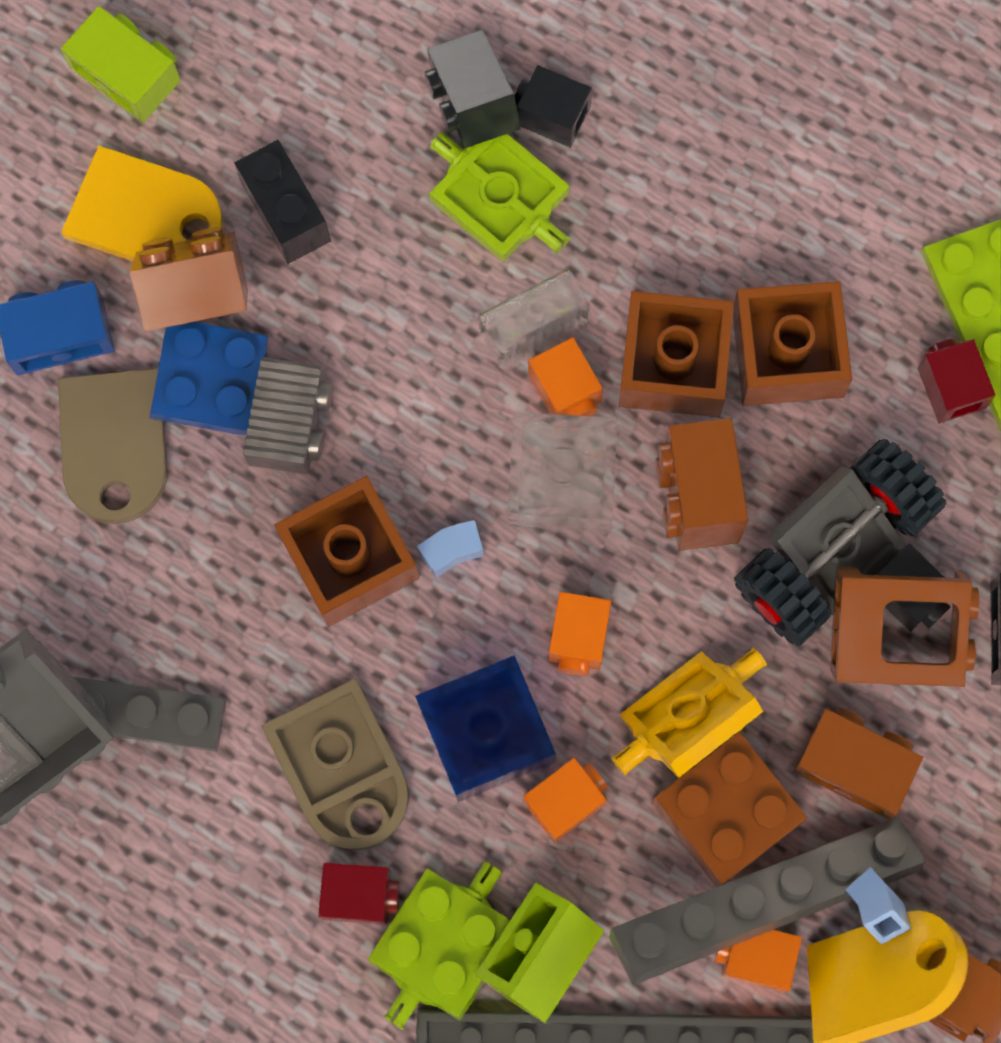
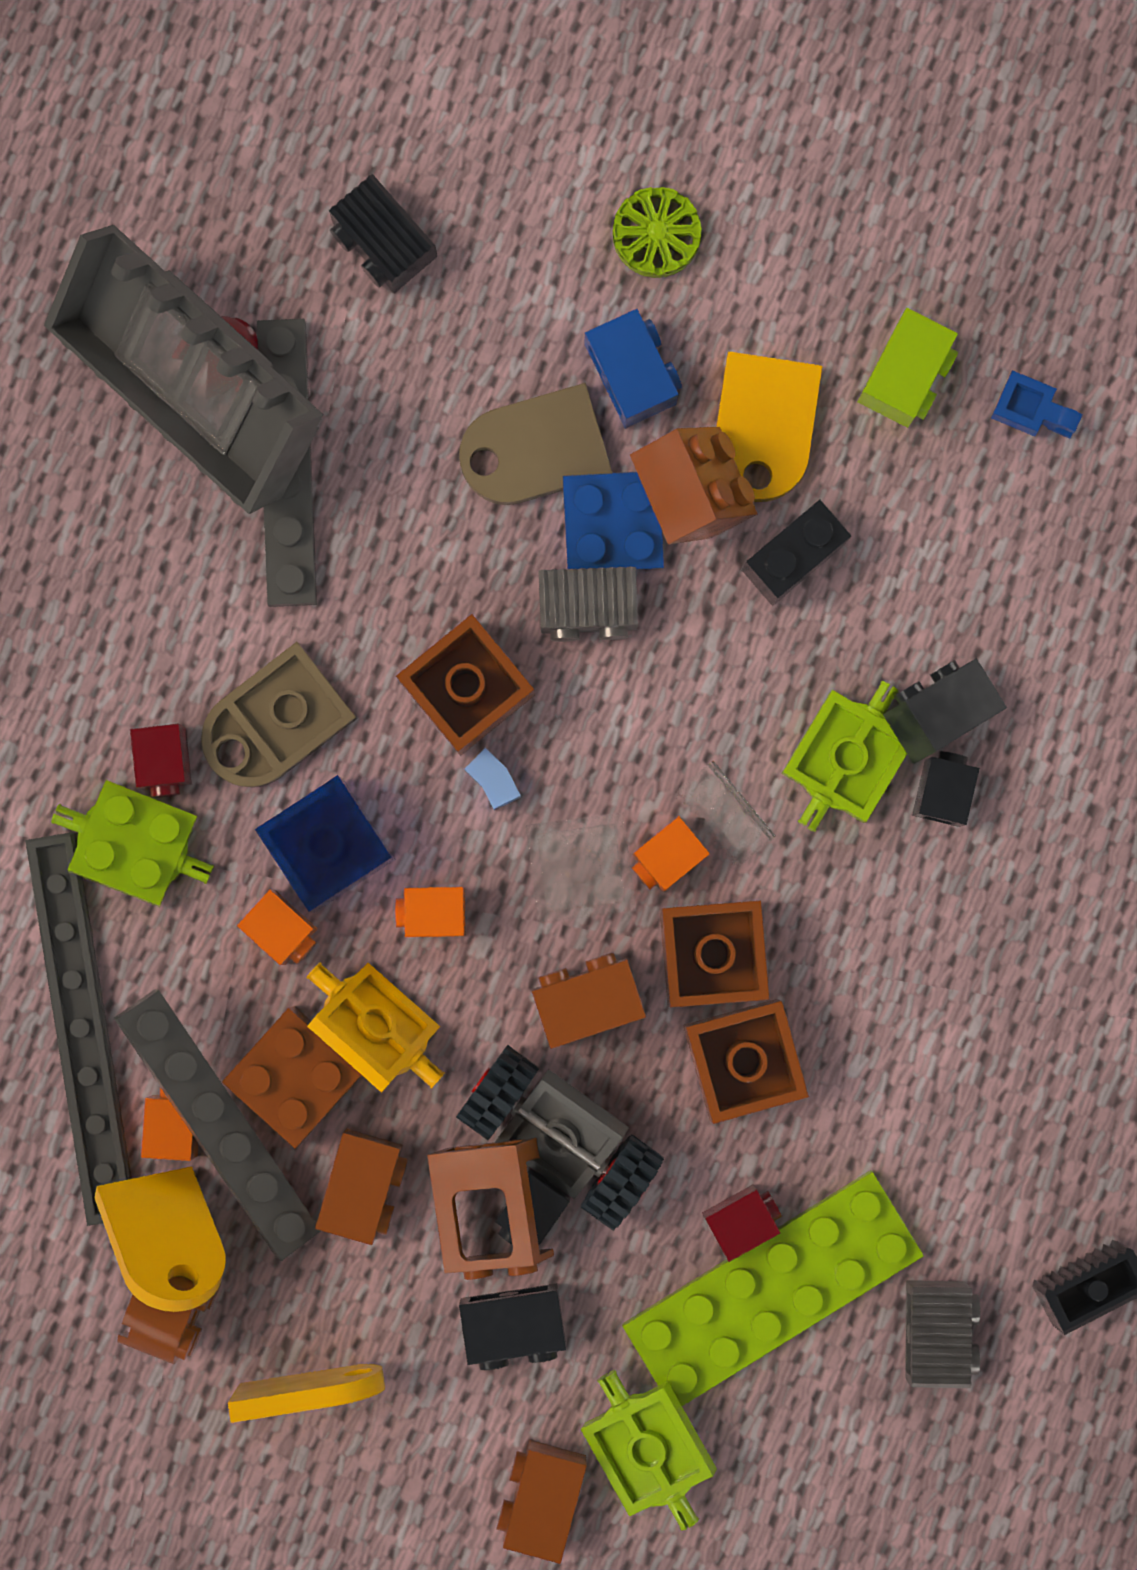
camera: 70 degrees right, 10 degrees up
(540, 952) = (136, 930): lime brick -> none
(879, 907) = (225, 1225): light blue piece -> none

